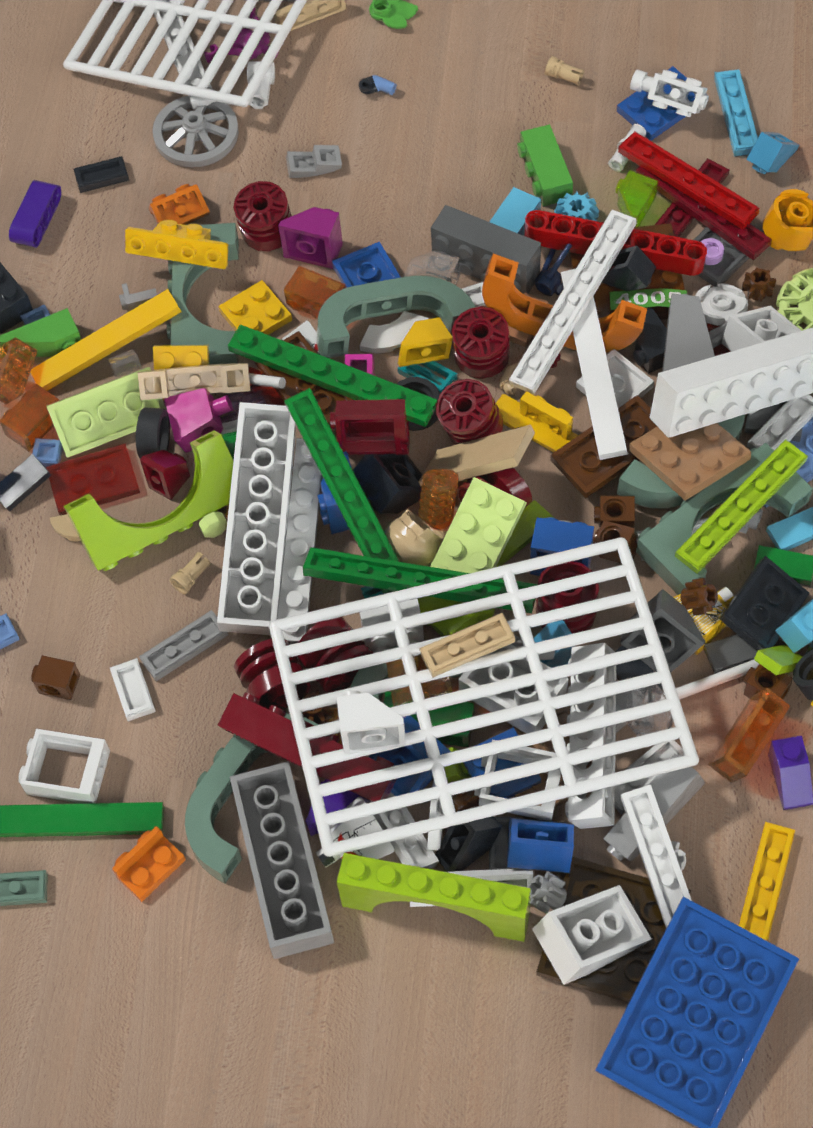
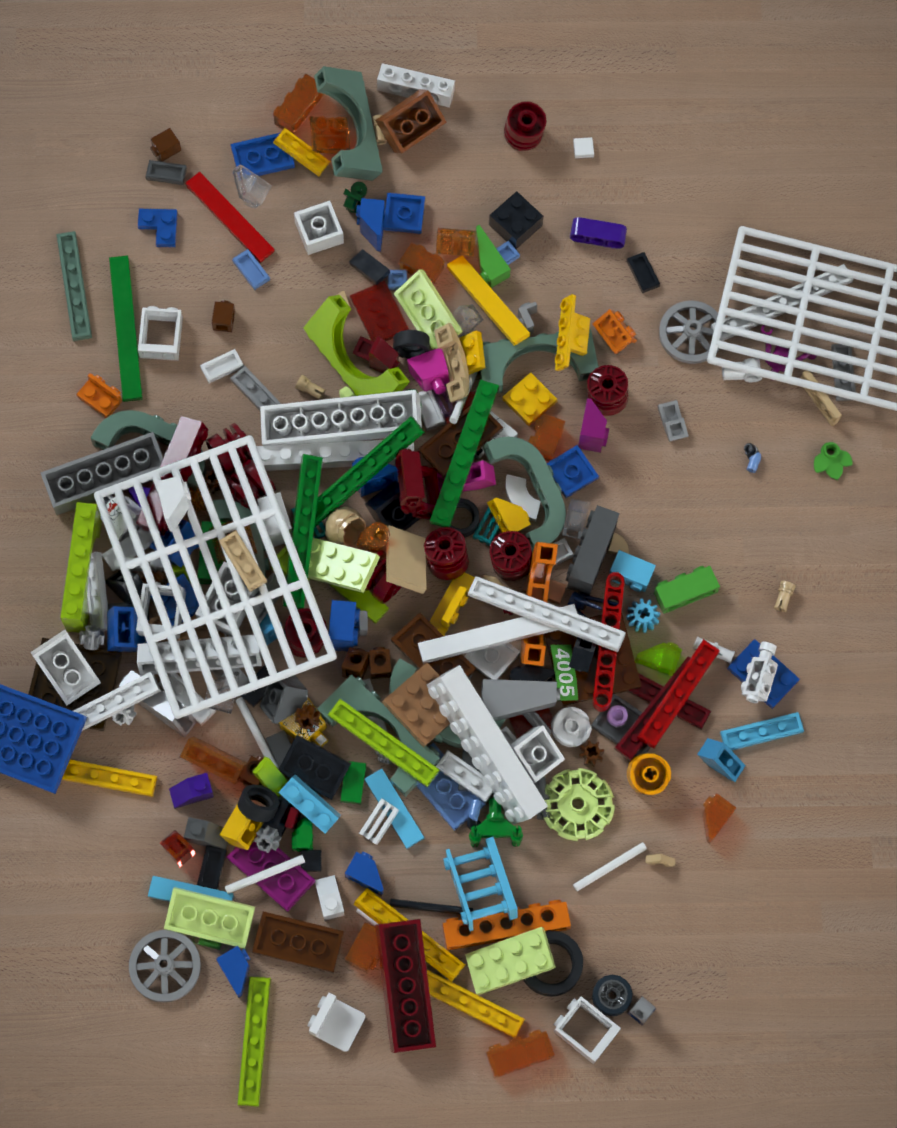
camera: 75 degrees right, 10 degrees up
(145, 496) = (363, 348): none -> dark red plate

